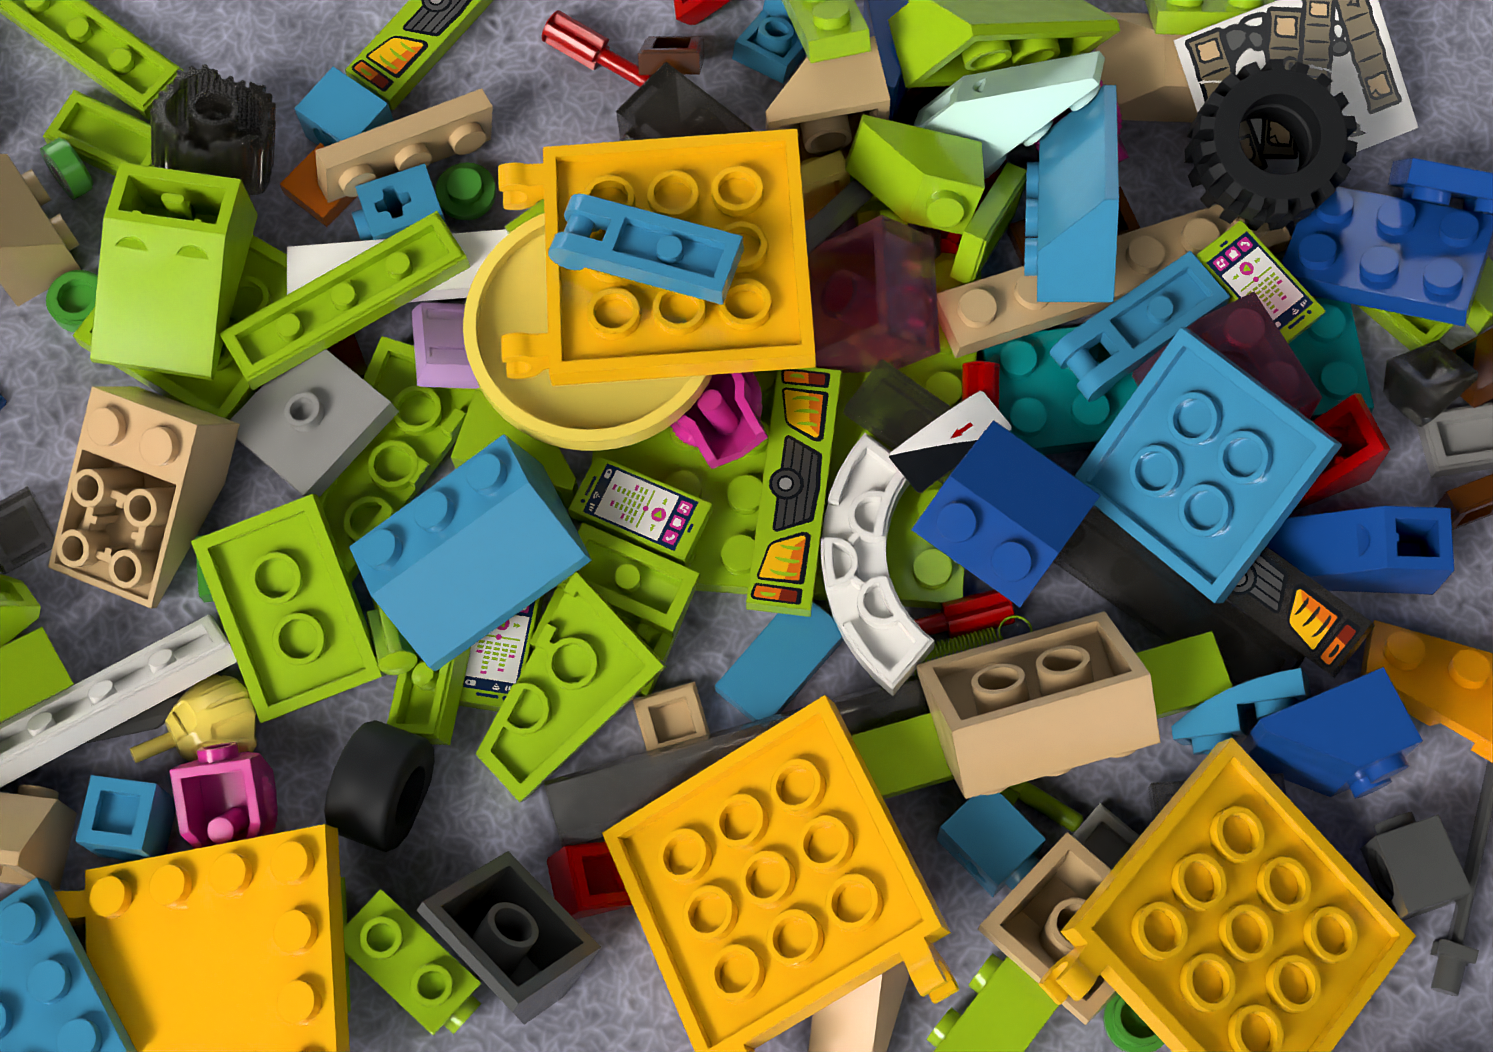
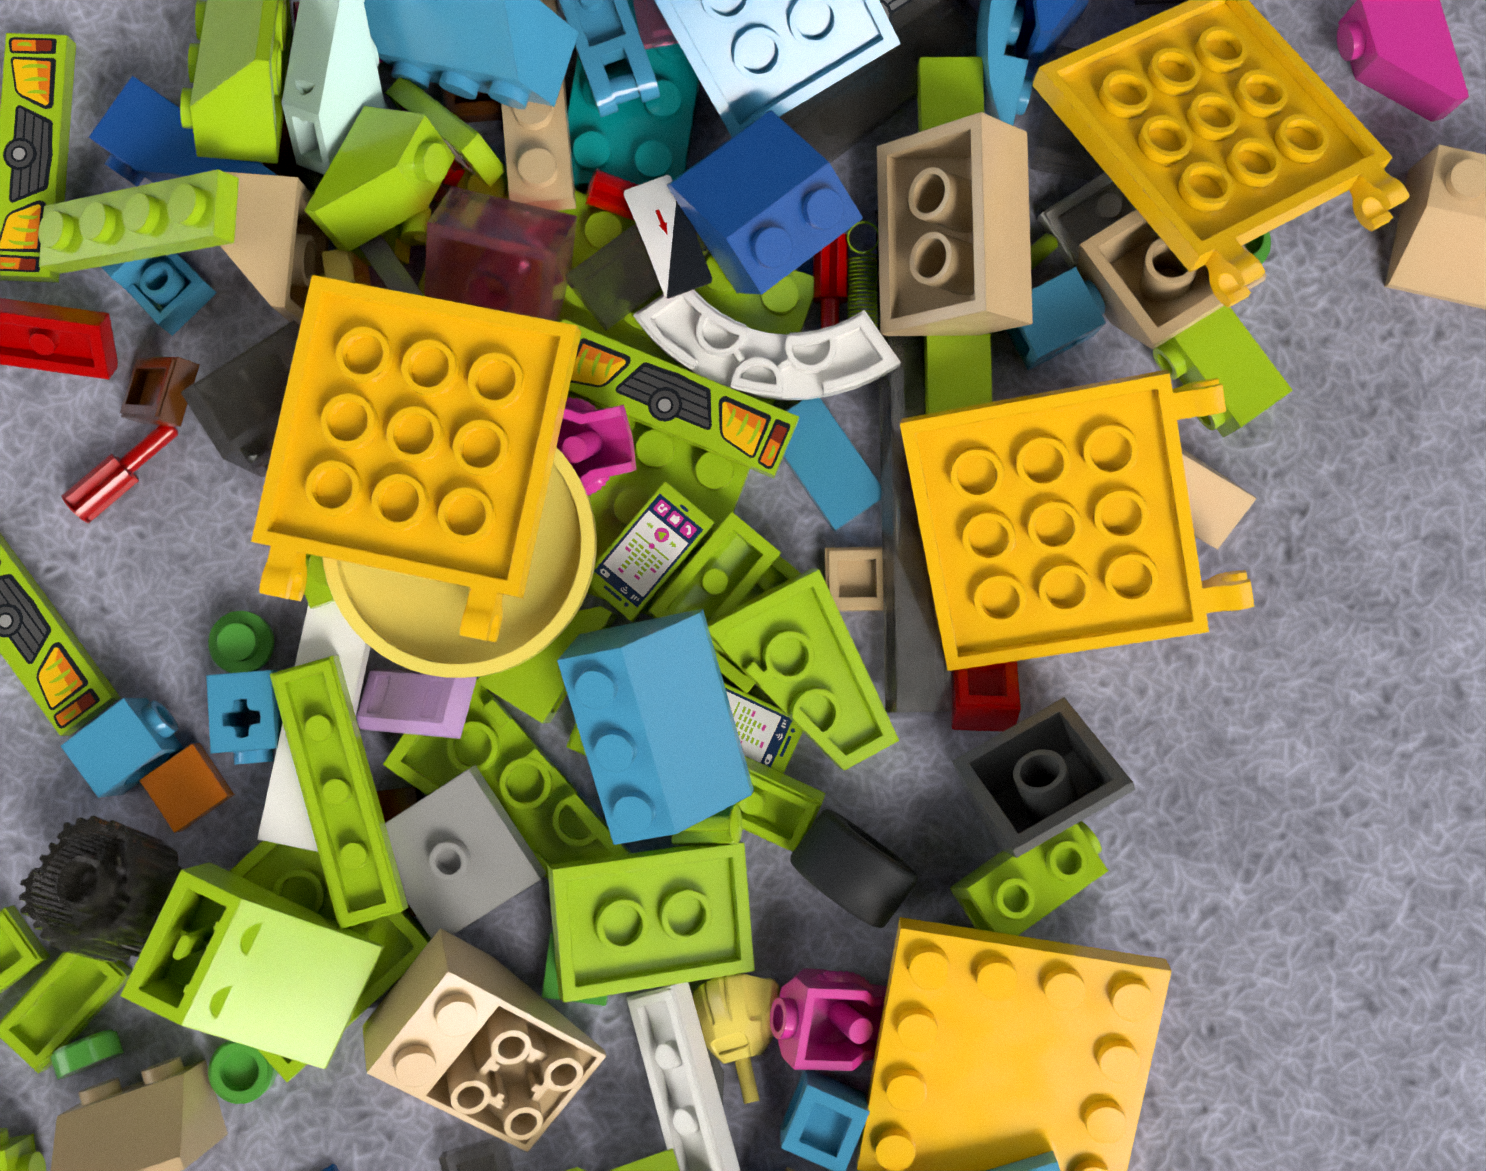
camera: 75 degrees left, 15 degrees up
(420, 138) = (176, 691): tan plate -> none
(647, 248) = (411, 460): dark azure plate -> none

